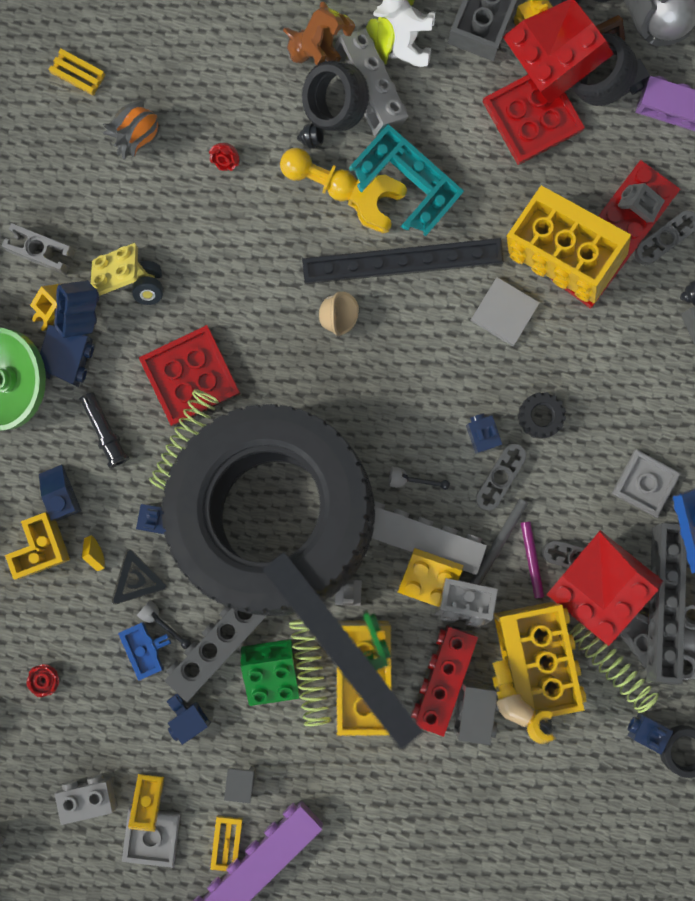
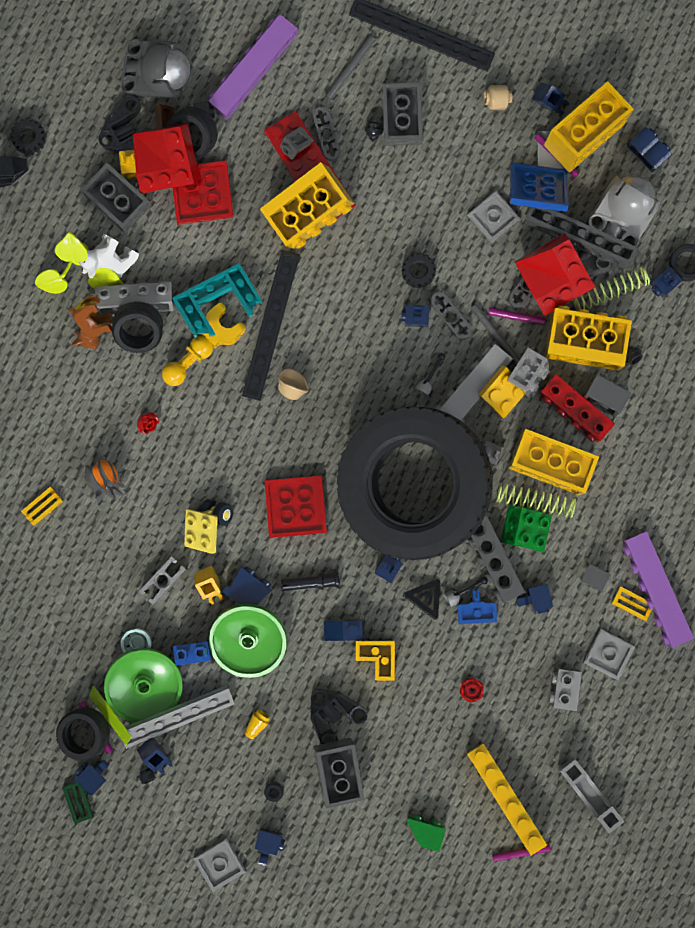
camera: 60 degrees left, 0 degrees up
(76, 308) = (220, 566): dark blue brick -> none
(93, 554) = (395, 622): yellow tile -> none
(146, 803) = (583, 647): yellow plate -> none
(199, 393) = (343, 532): yellowish green piece -> none
(311, 136) = (156, 356): black plate -> none
(343, 651) = (529, 463): black tile -> none
(377, 659) = (543, 452): green bracket -> none
(504, 311) = (335, 267): light grey tile -> none
(514, 708) = (612, 366): yellow piece -> none

